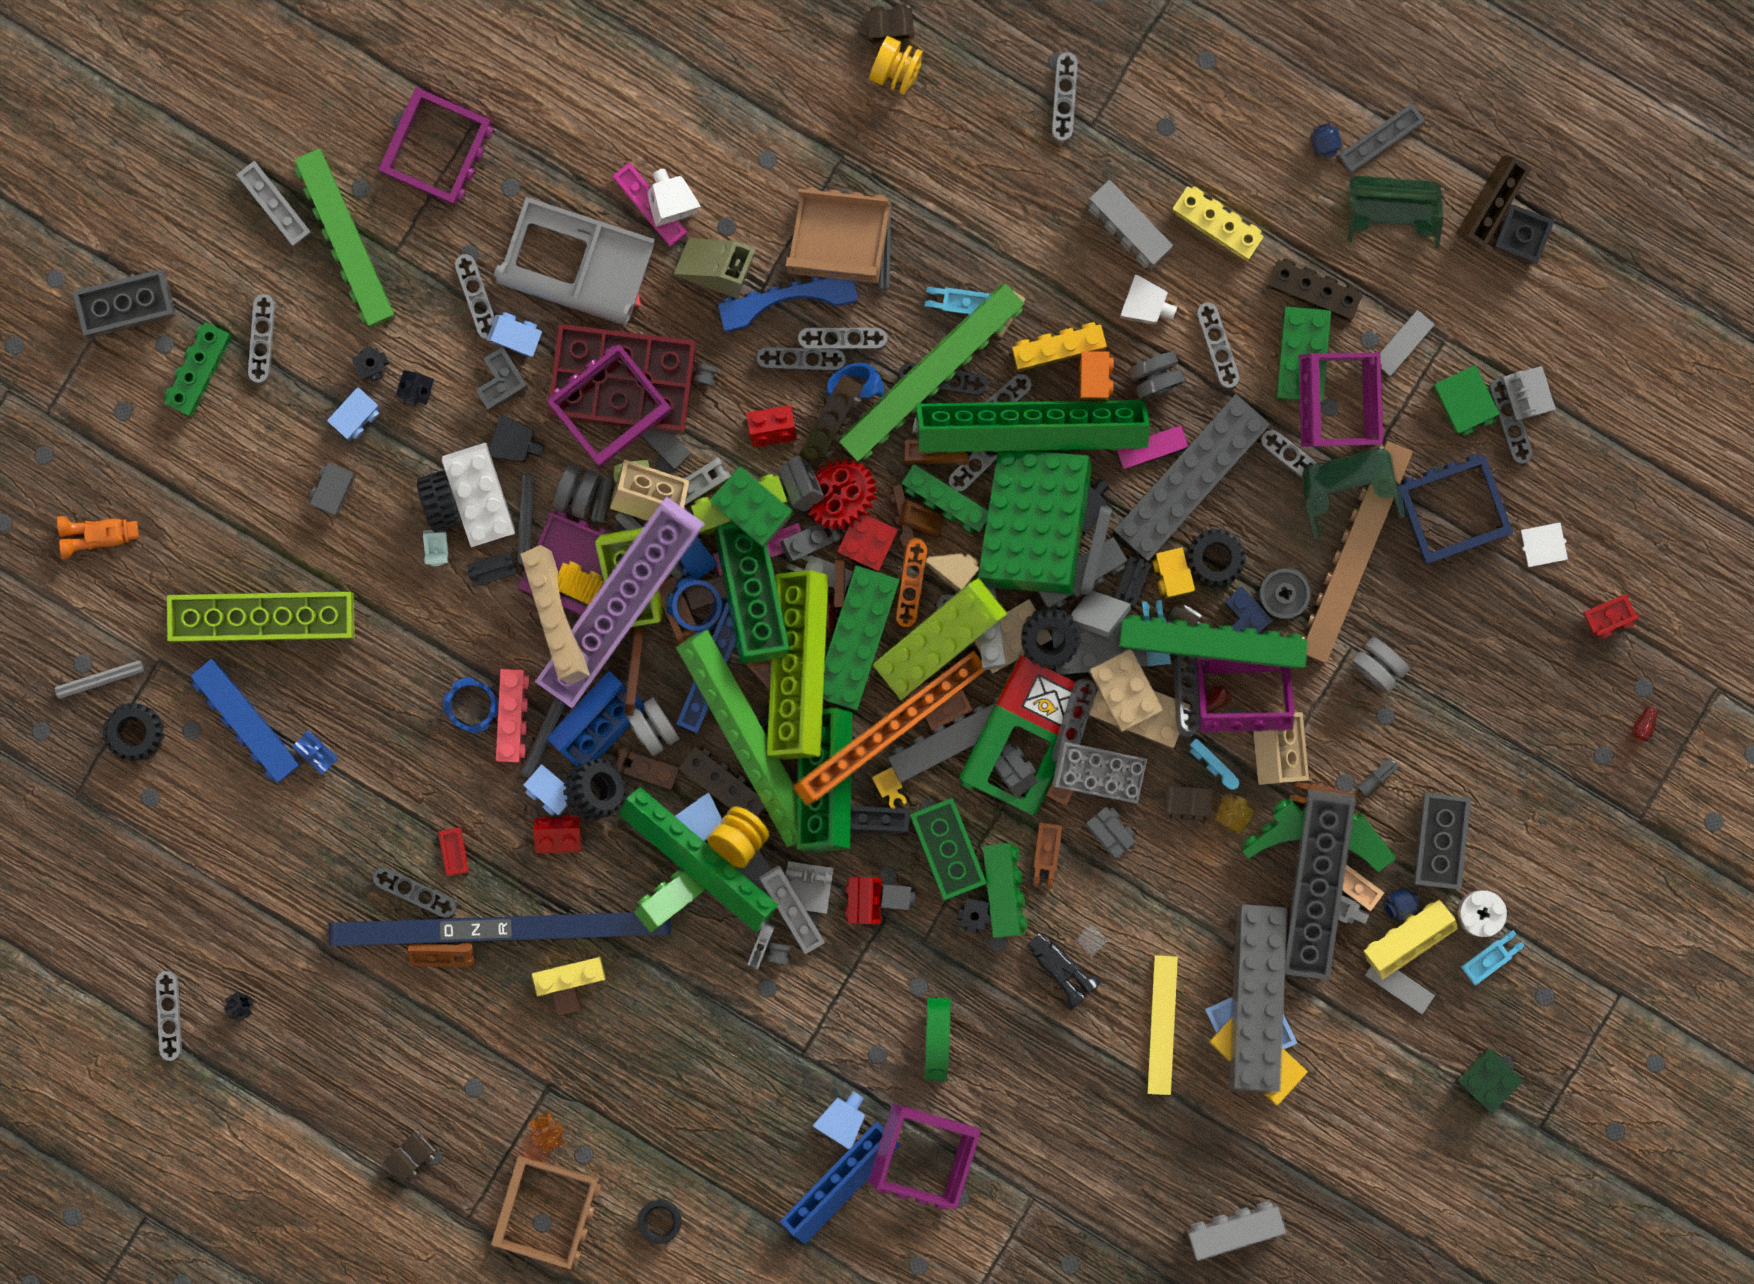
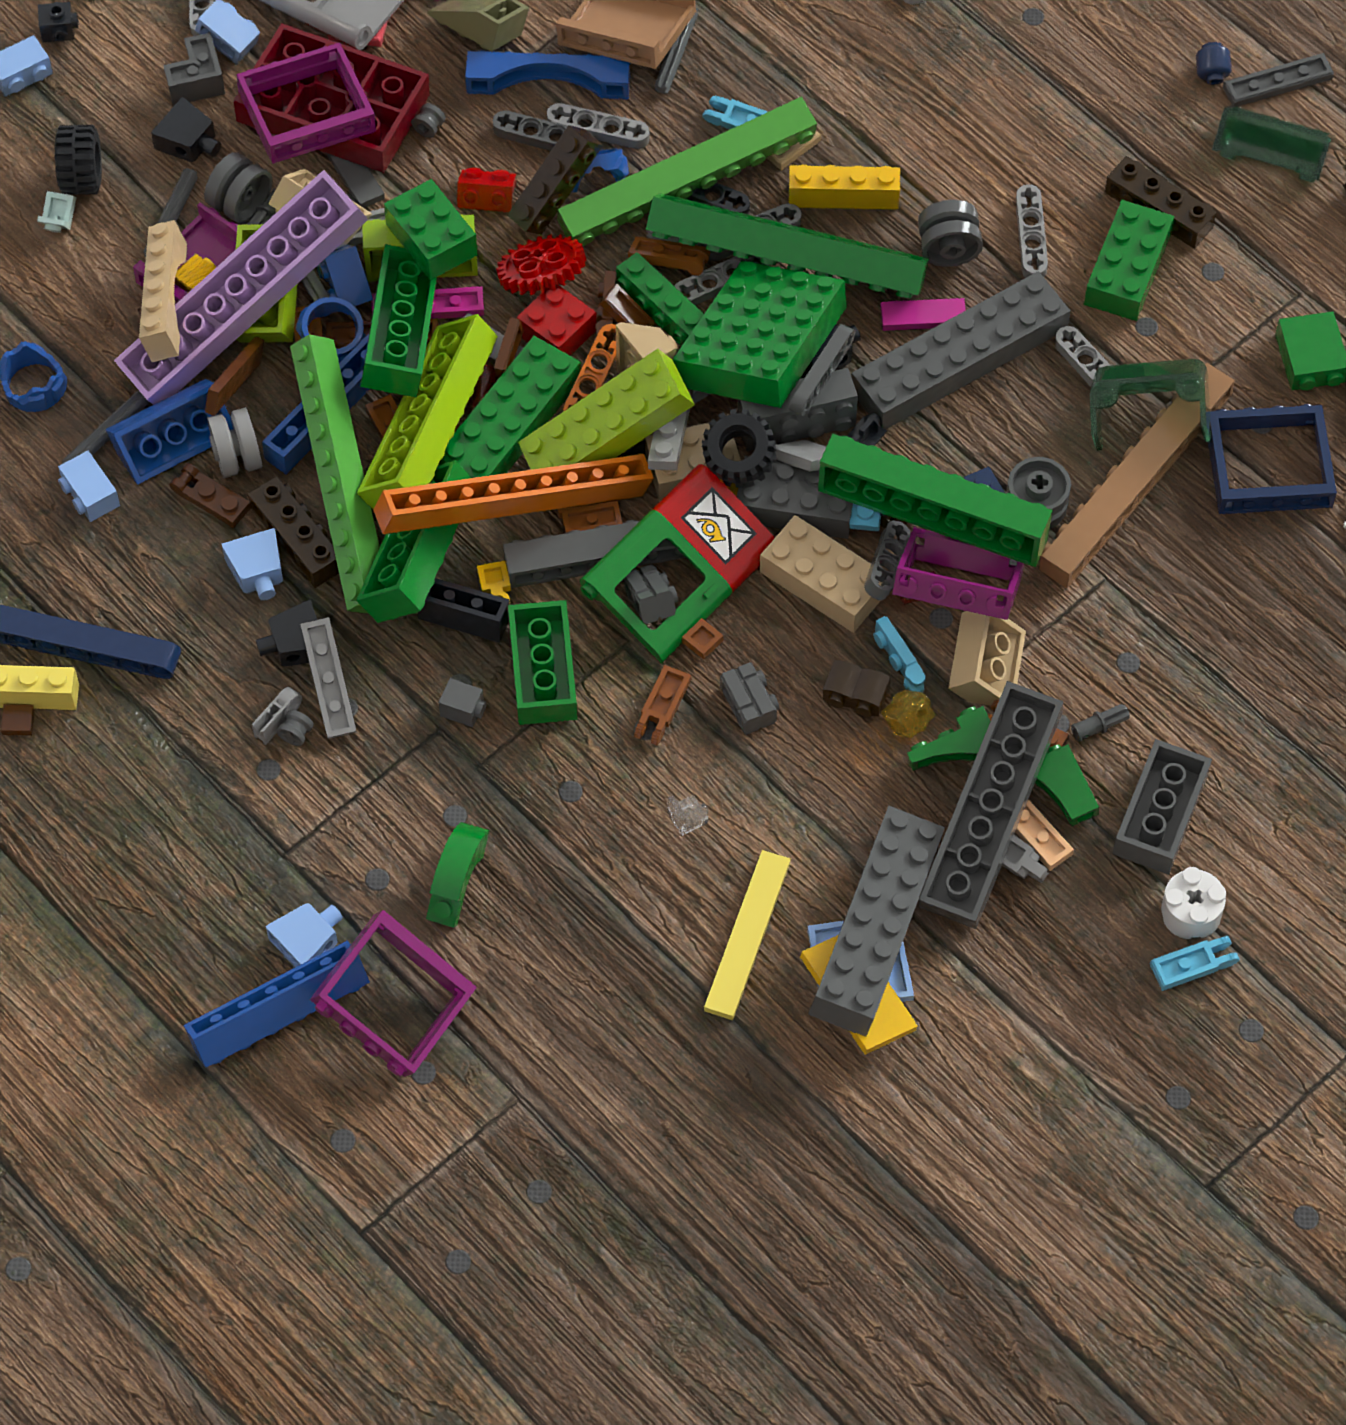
camera: 15 degrees right, 25 degrees down
(414, 388) = (97, 54): black brick -> none
(478, 494) = (125, 164): white brick -> none
(491, 569) = (111, 251): black hinge -> none
(510, 715) = (73, 398): coral brick -> none
(557, 834) = (77, 537): red bracket -> none
(580, 794) = (152, 477): black tyre -> none
(659, 1239) = (26, 974): black tyre -> none
(668, 900) = (184, 627): brick -> none
(698, 859) = (235, 592): green brick -> none
(738, 836) = (290, 574): yellow wheel -> none
(800, 483) = (498, 242): dark grey brick -> none
(809, 541) = (489, 303): dark grey plate -> none
(811, 885) = (362, 666): light grey hinge -> none
(864, 900) = (420, 694): red brick -> none
(974, 906) = (551, 743): black brick -> none
(1004, 890) = (597, 726): green brick -> none
(1061, 969) = (641, 835): black piece -> none
(1069, 720) = (739, 558): dark grey beam -> none
(1094, 376) = (878, 213): orange brick -> none
(1099, 772) = (755, 623): light grey tile -> none
(1125, 690) = (813, 529): tan brick -> none
(1129, 225) = (963, 84): light grey brick -> none
(1146, 303) = (958, 168): white torso -> none
(1174, 573) = (910, 436): yellow brick -> none
(1217, 223) = (1065, 113): light yellow brick -> none
(1230, 543) = (966, 417): black tyre -> none
(1235, 1231) = (768, 1193): light grey brick -> none
(1310, 399) = (1206, 275): magenta window -> none
(1378, 667) = (1136, 591): light grey wheel -> none
(1401, 904) = (1092, 869): dark blue head -> none
(1403, 989) = (1065, 966): light grey tile -> none
(1404, 342) = (1252, 281): light grey tile -> none
(1410, 939) = (1093, 907): light yellow brick -> none
(1489, 1080) = (1153, 1103): dark green brick -> none

